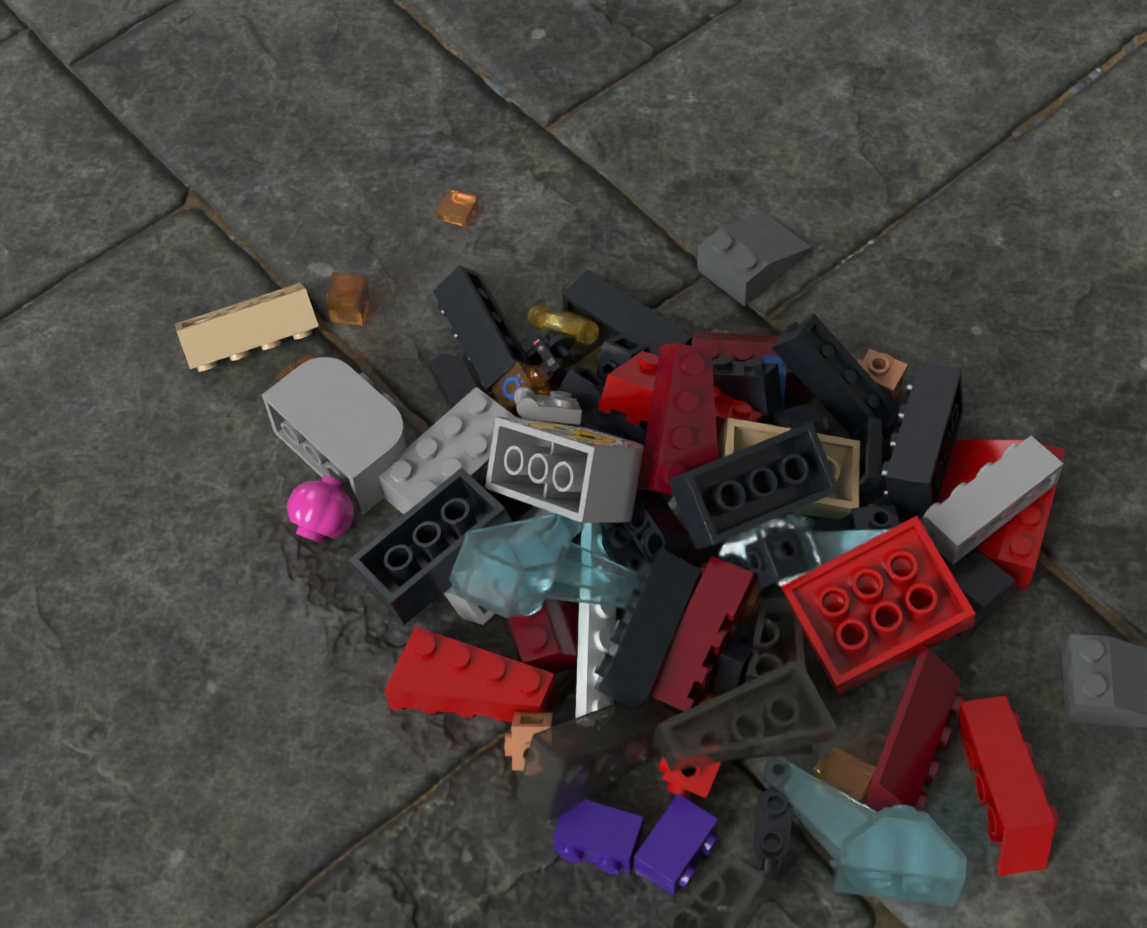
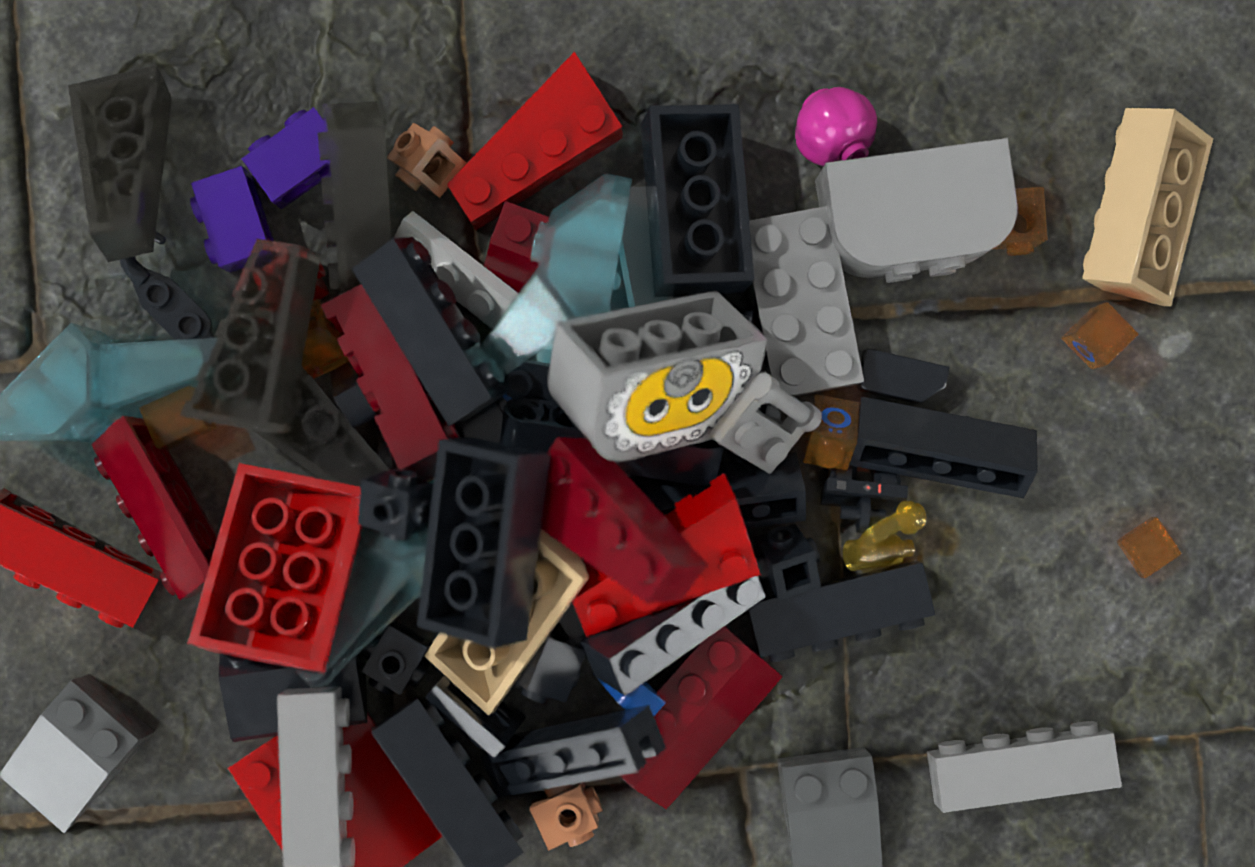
camera: 125 degrees right, 30 degrees up
(639, 185) = (1024, 767): none -> light grey brick

